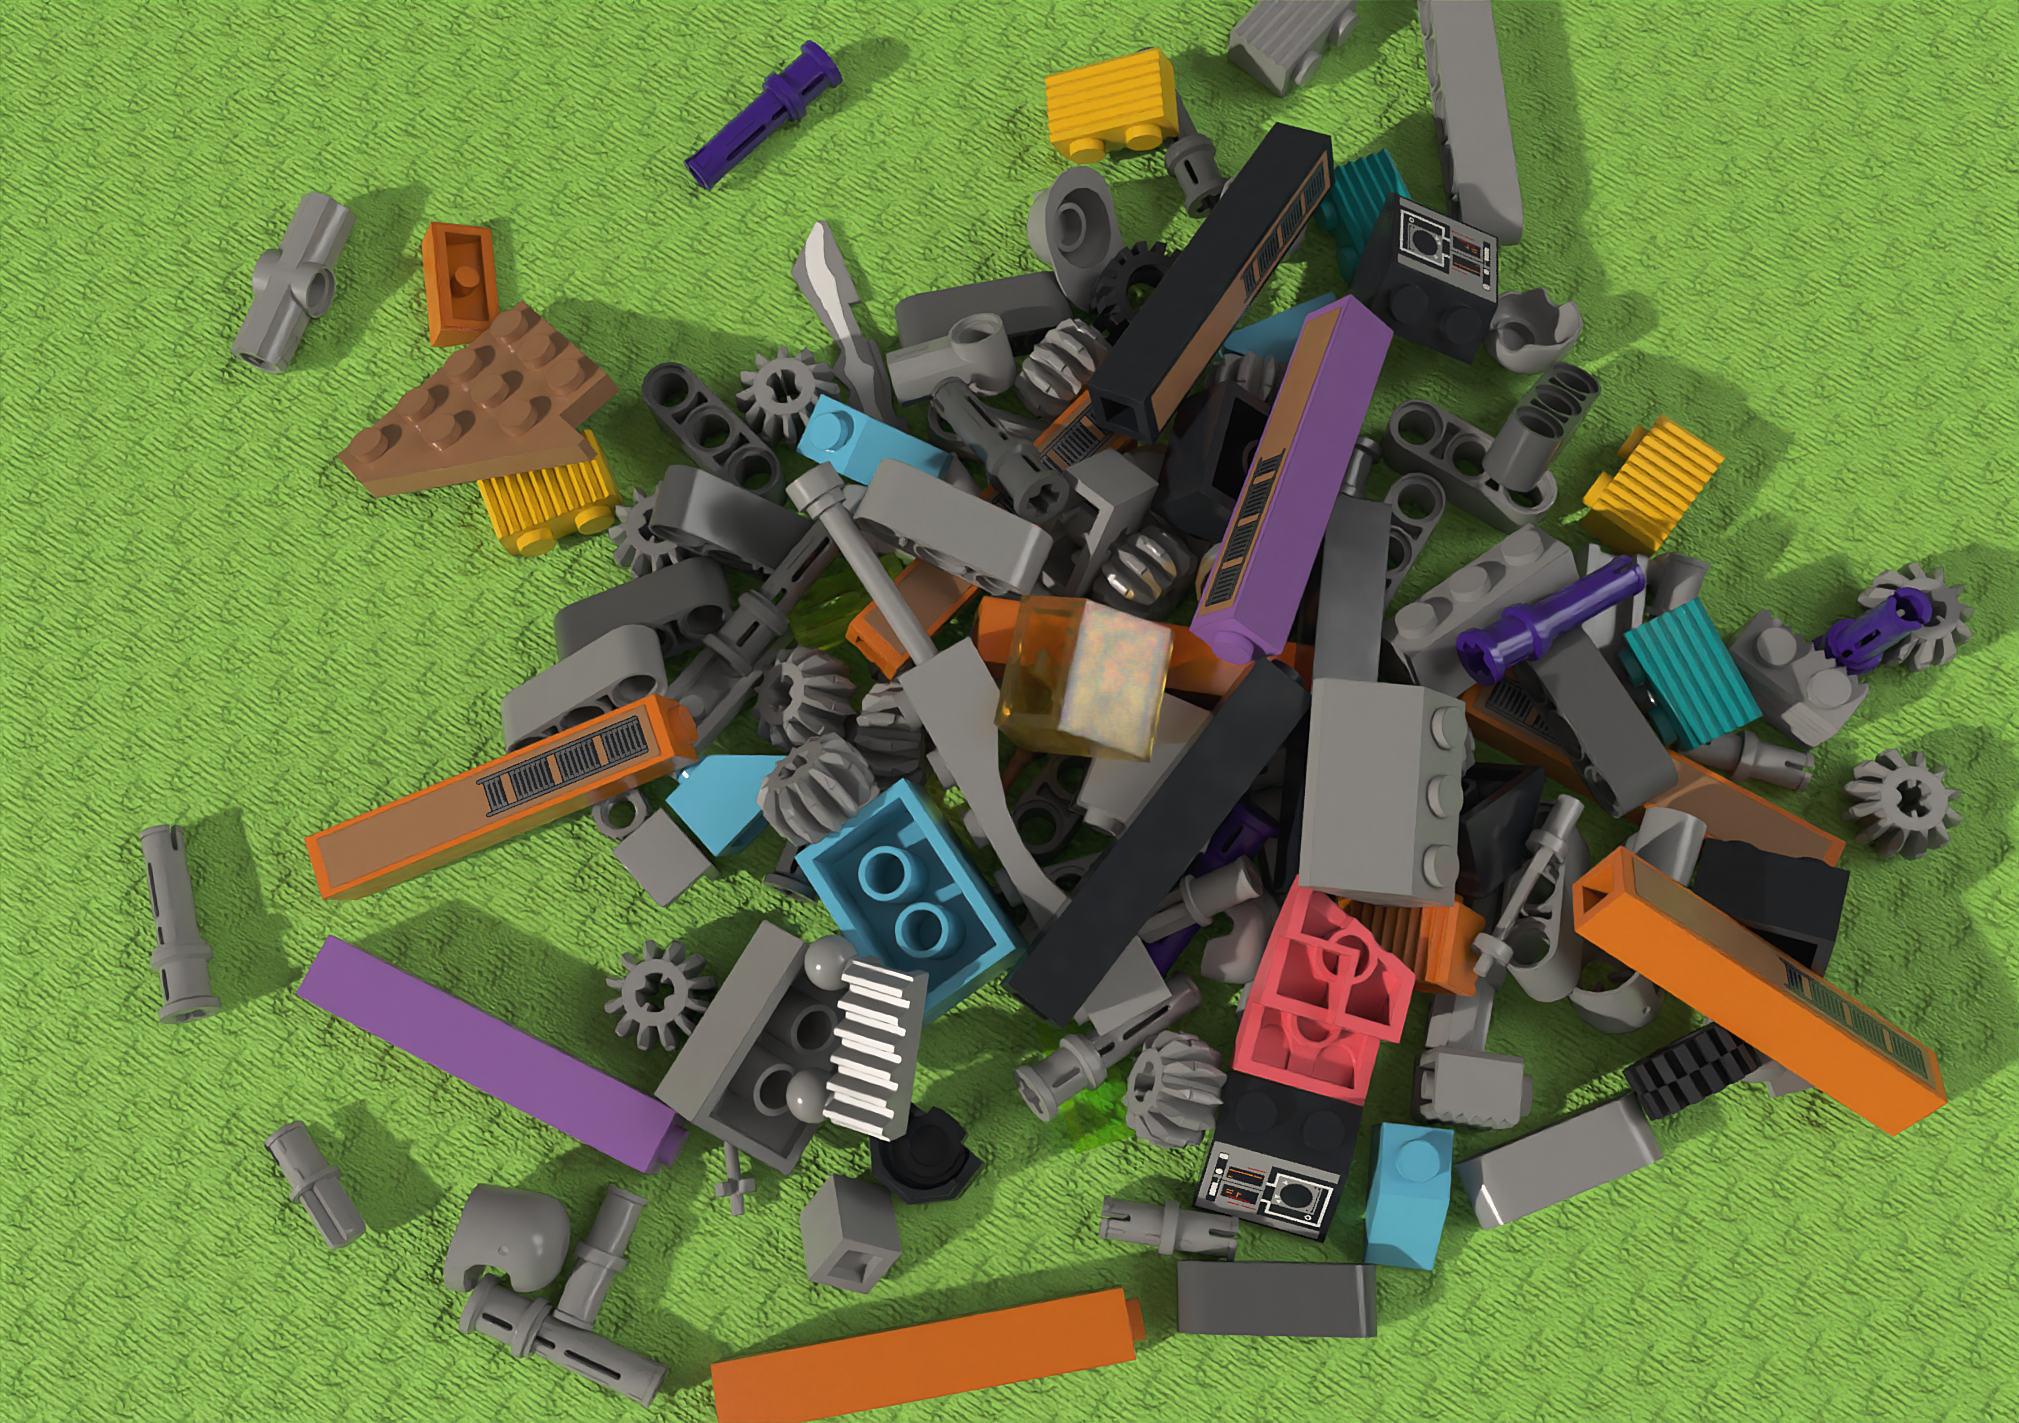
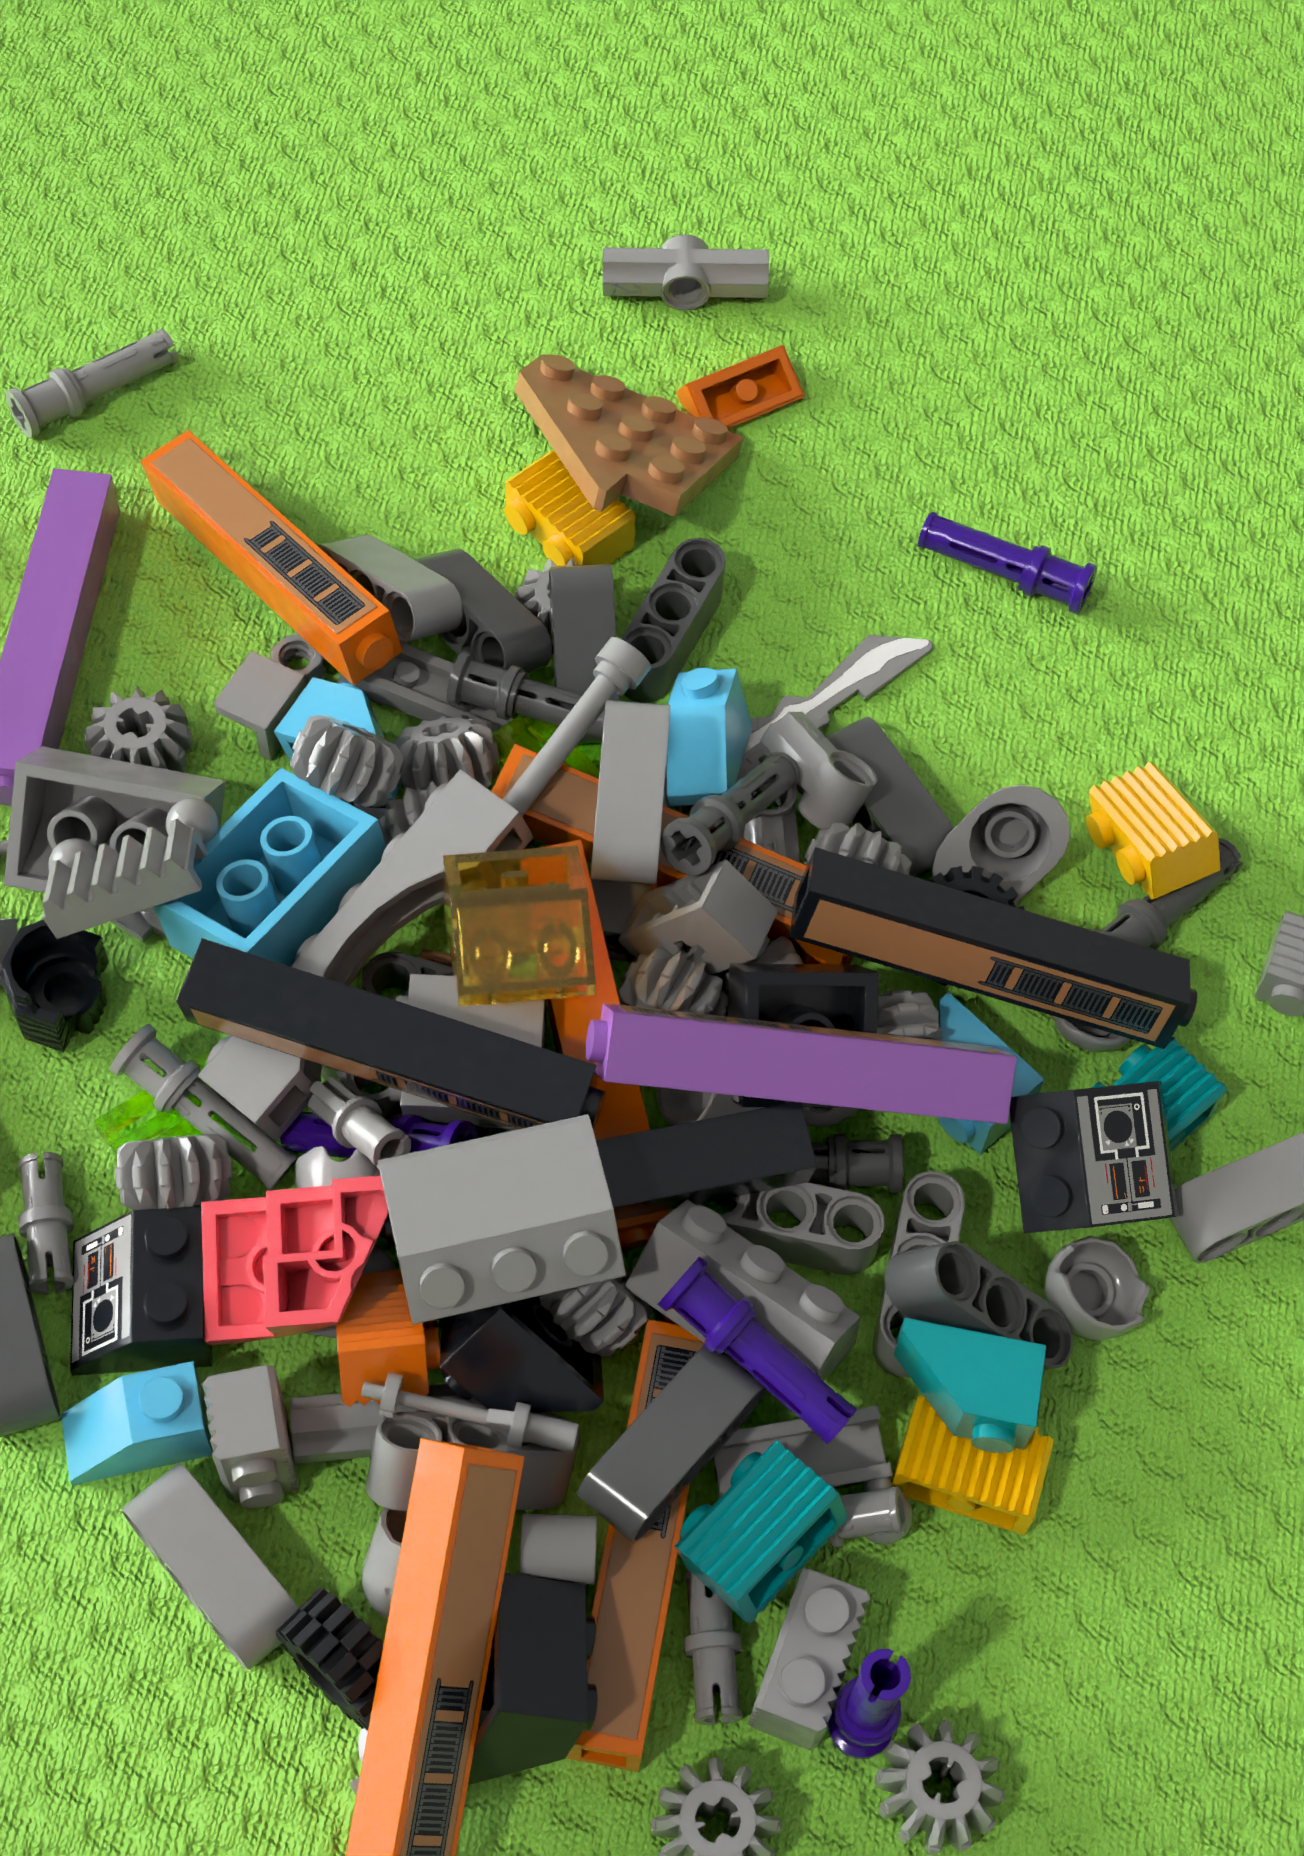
camera: 60 degrees right, 15 degrees down
(778, 380) = (745, 647): light grey gear -> none
(1618, 449) = (975, 1381): none -> teal slope

